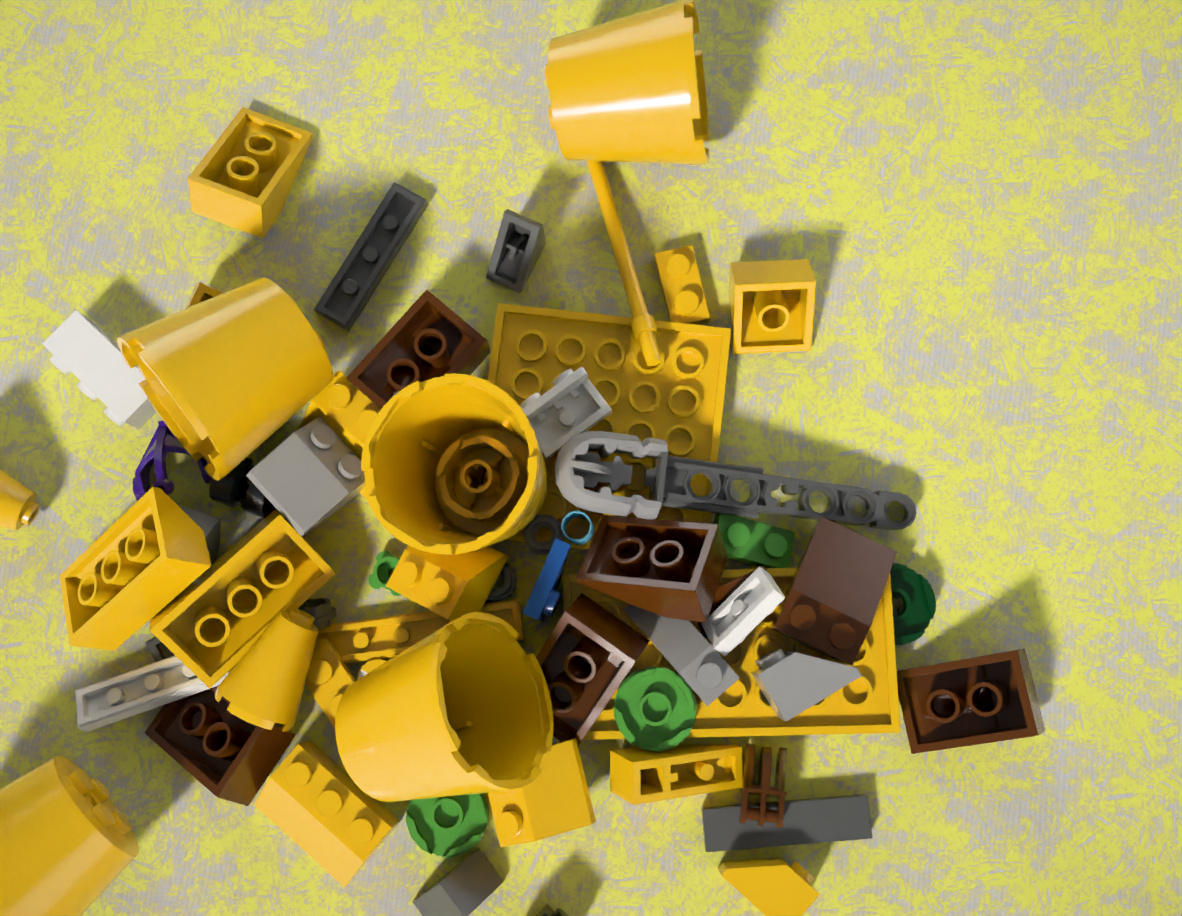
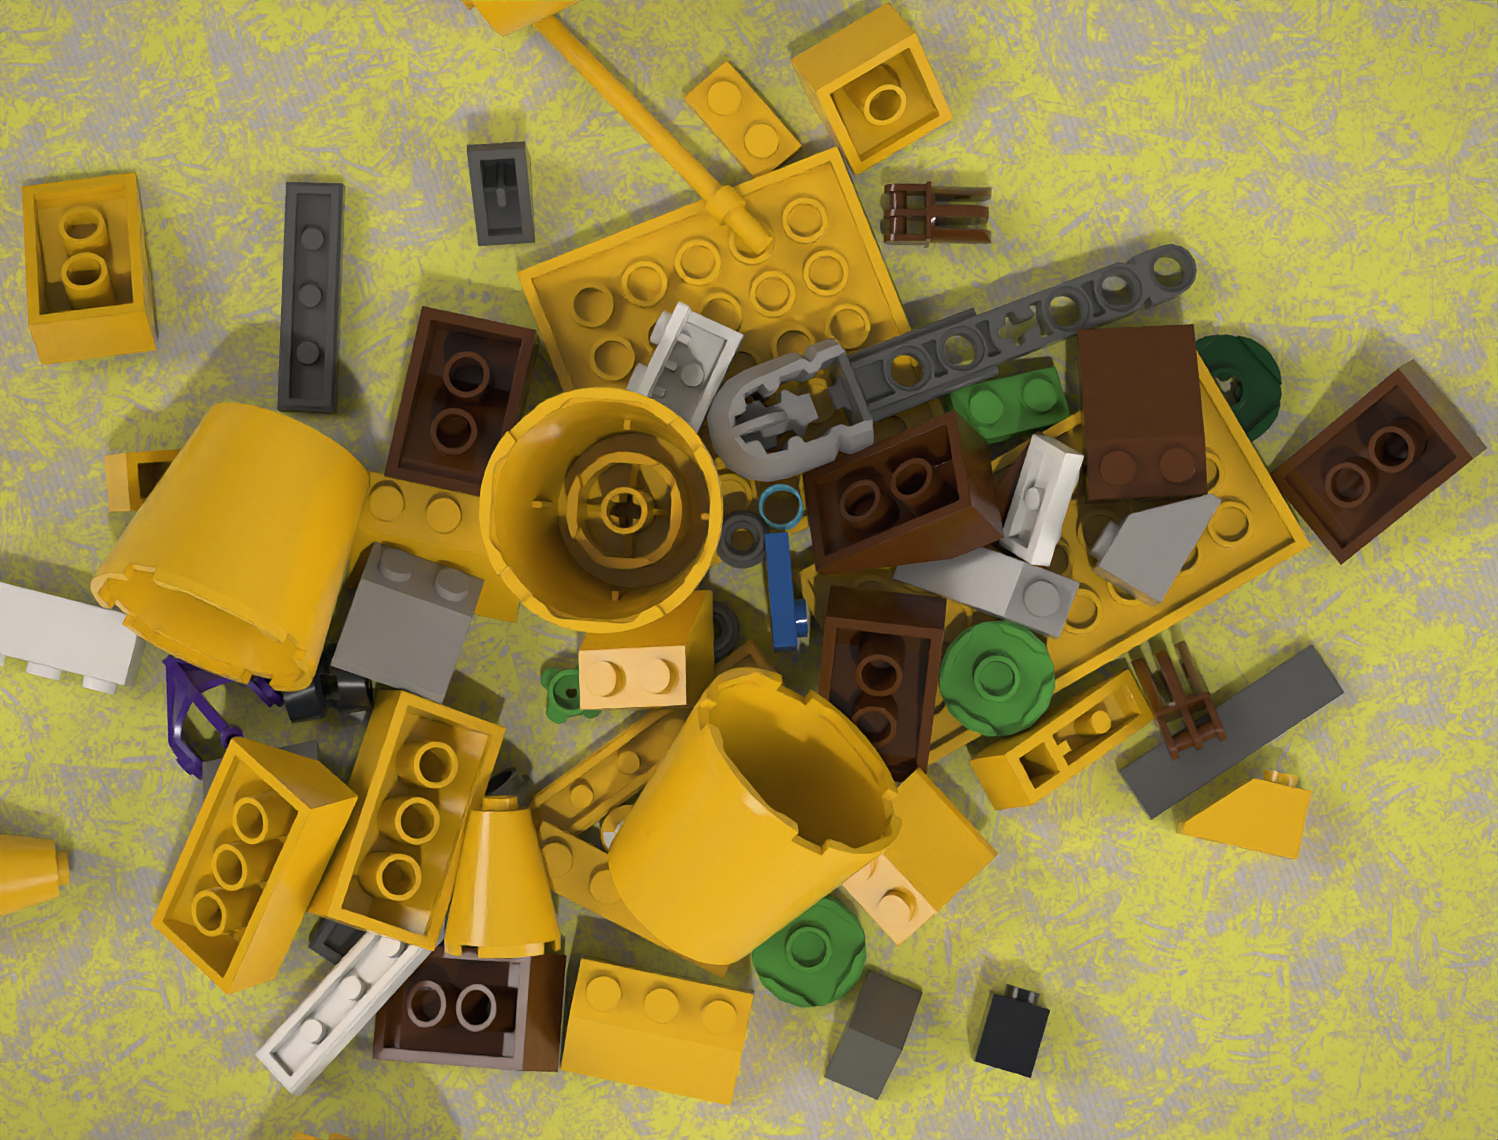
camera: 30 degrees left, 5 degrees up
(776, 405) = (937, 214): none -> reddish brown arm

